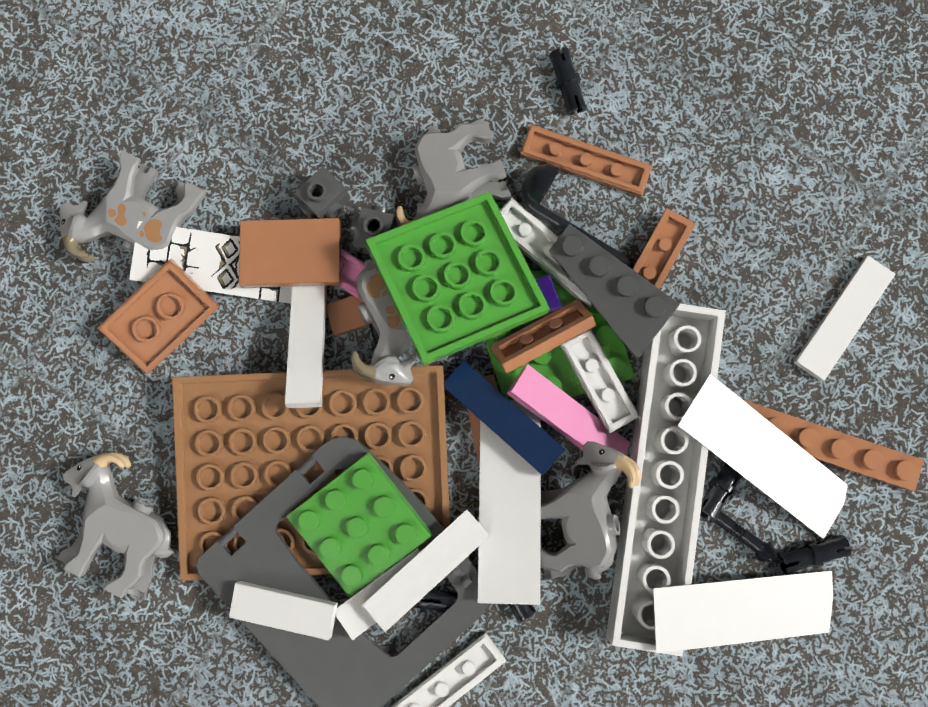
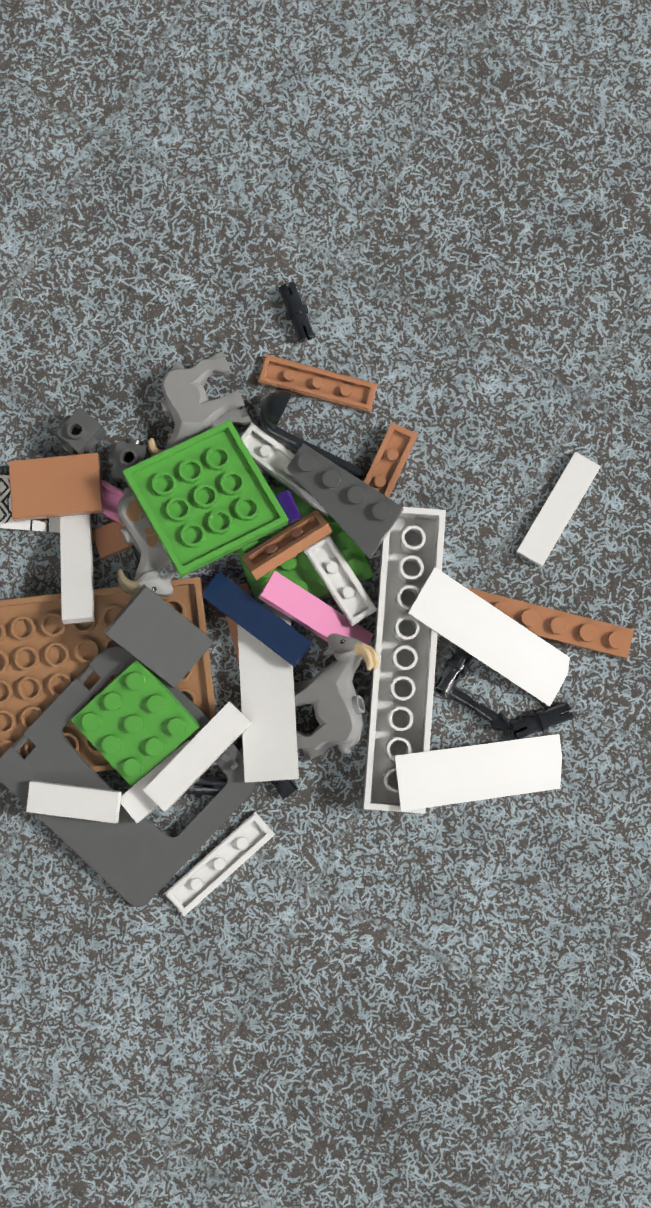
camera: 10 degrees left, 0 degrees up
(392, 429) = (158, 636): none -> dark grey tile

